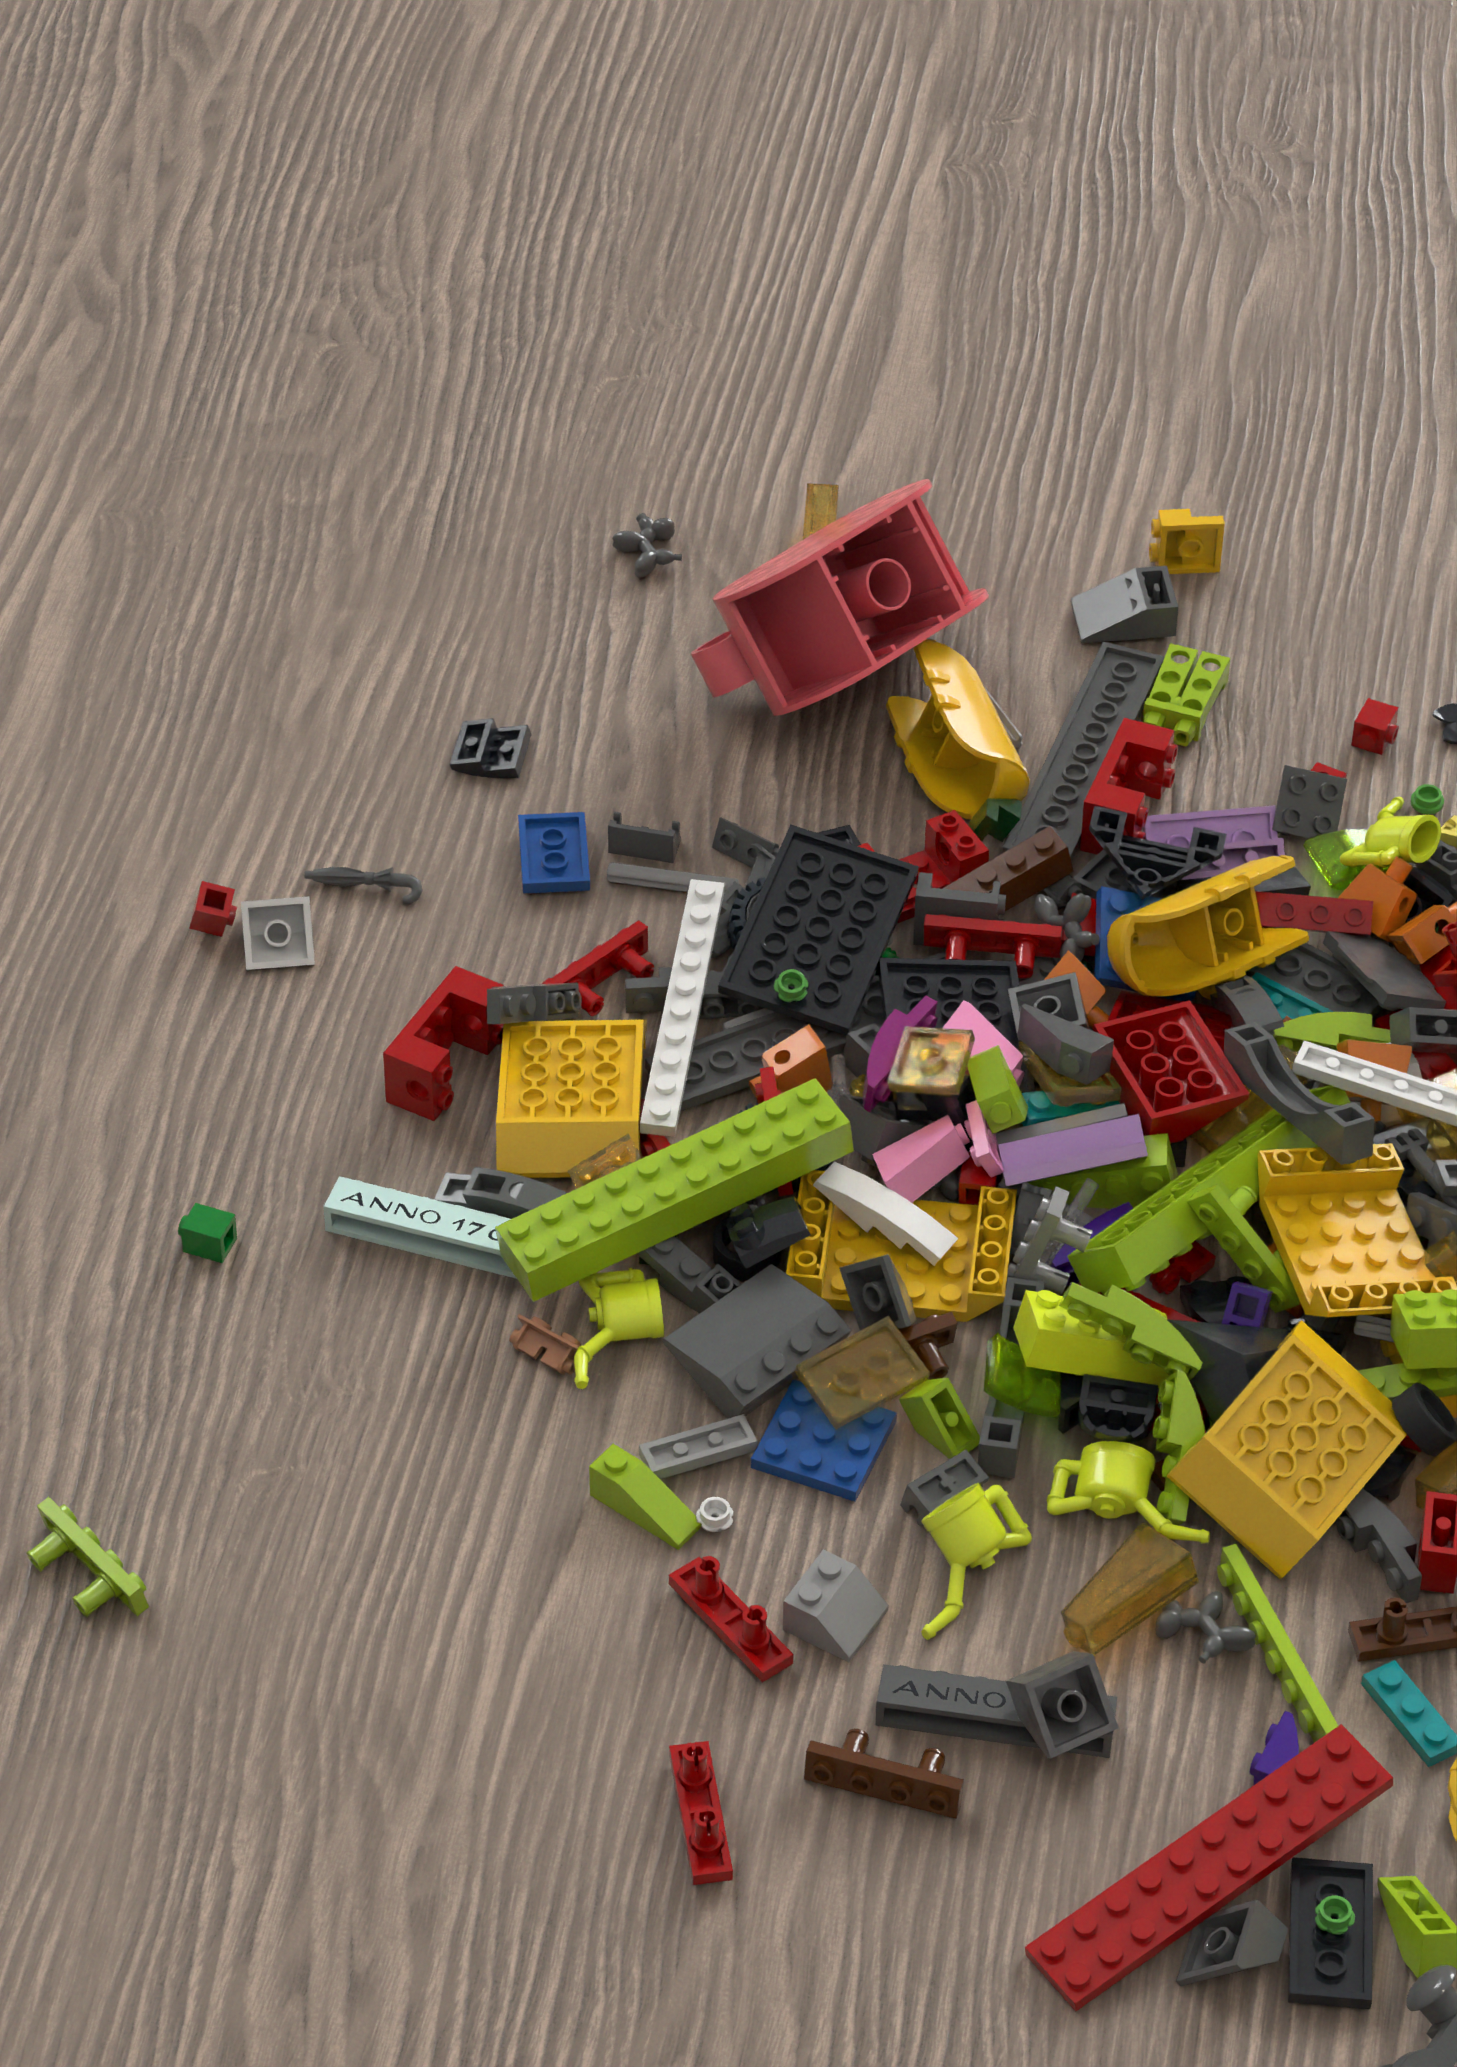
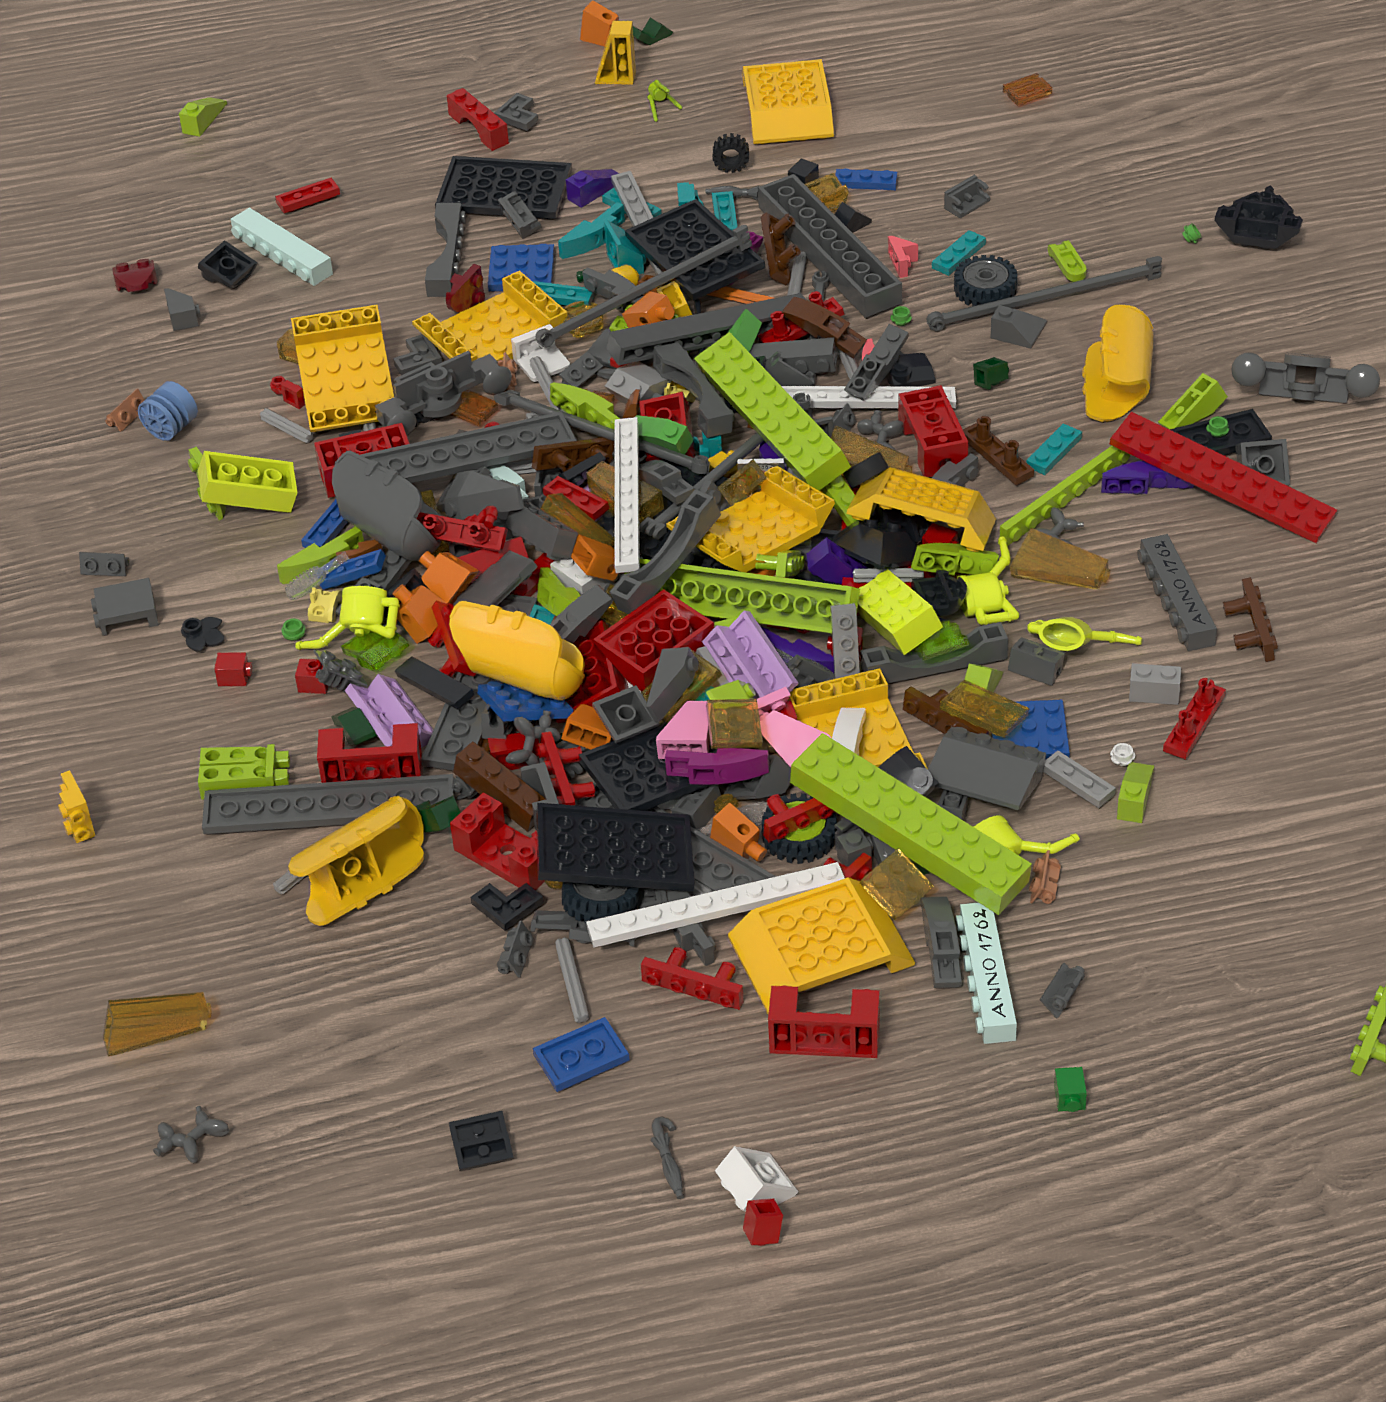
camera: 110 degrees left, 0 degrees up
(359, 1285) = (1062, 988): none -> dark grey hinge
(533, 1003) = (764, 973): dark grey slope -> none
(642, 841) = (537, 1008): dark grey hinge -> none
(700, 1813) = (1330, 687): red plate -> none
(791, 978) = (679, 840): bright green plate -> none
(837, 605) = (276, 923): coral brick -> none
(877, 1292) = (922, 714): dark grey slope -> none
(1063, 1703) = (1169, 548): flat silver slope -> none
(1128, 607) = (157, 824): dark grey slope -> none
(1147, 1332) = (902, 572): lime slope -> none
(1148, 863) = (450, 703): black wedge -> none
(1206, 798) = (355, 725): none -> dark green slope

